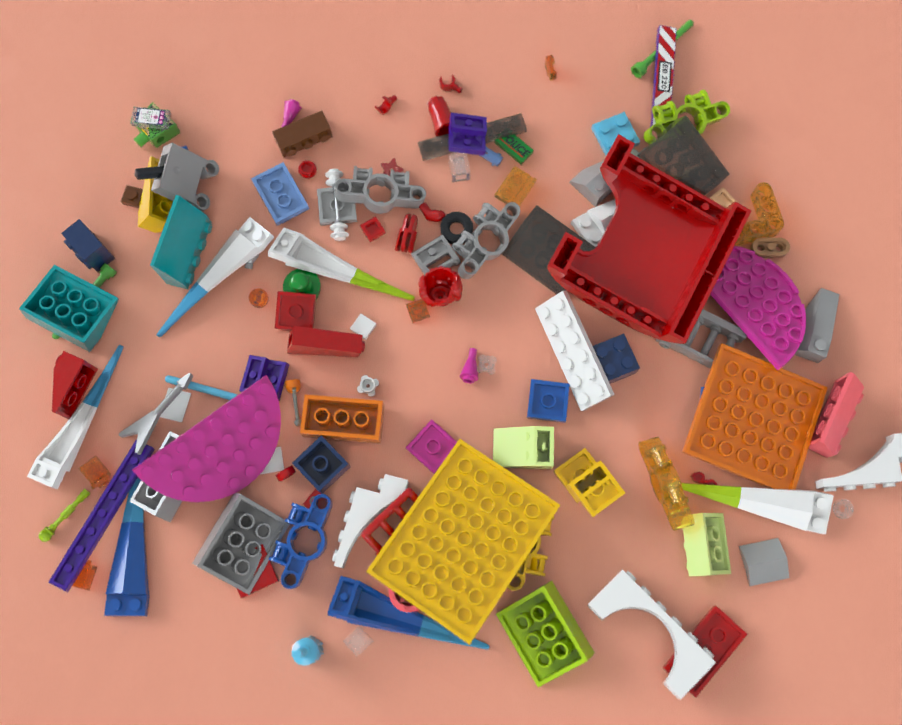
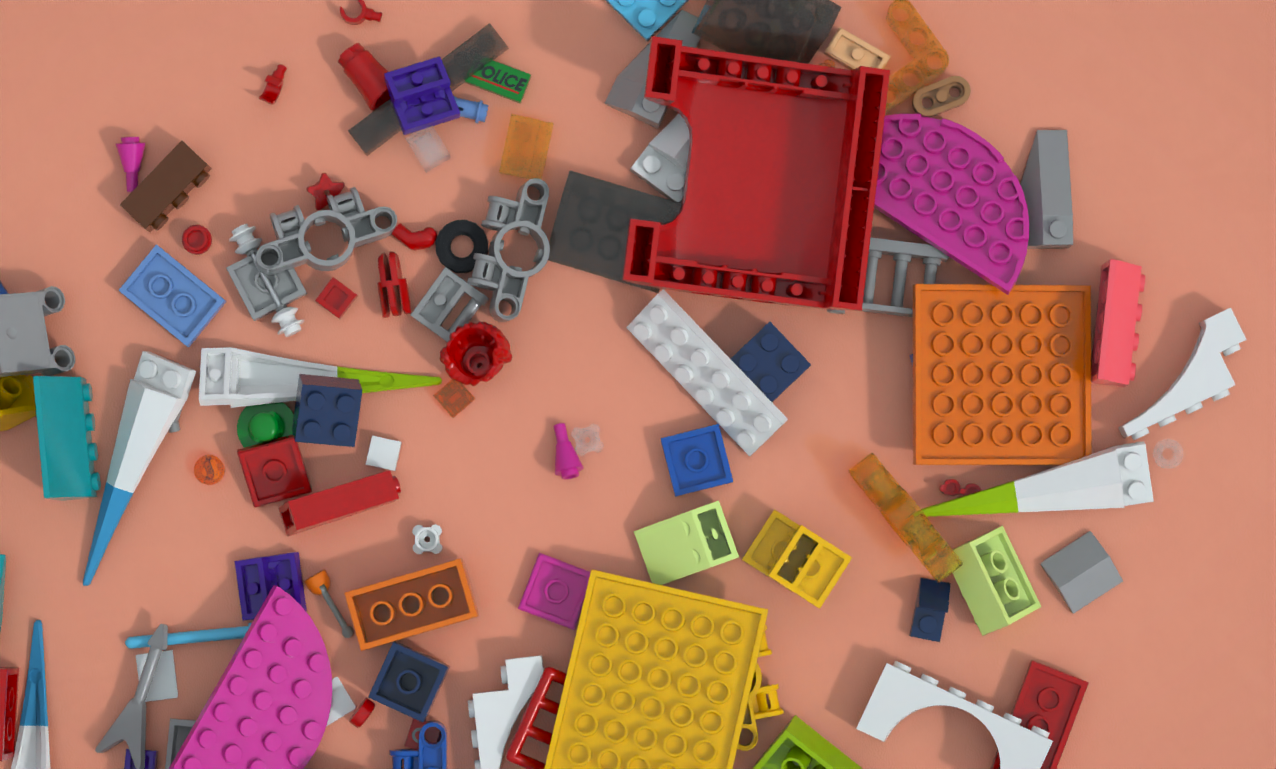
camera: 20 degrees left, 10 degrees up
(339, 286) = (326, 410): none -> dark blue brick
(659, 548) = (930, 609): none -> dark blue slope

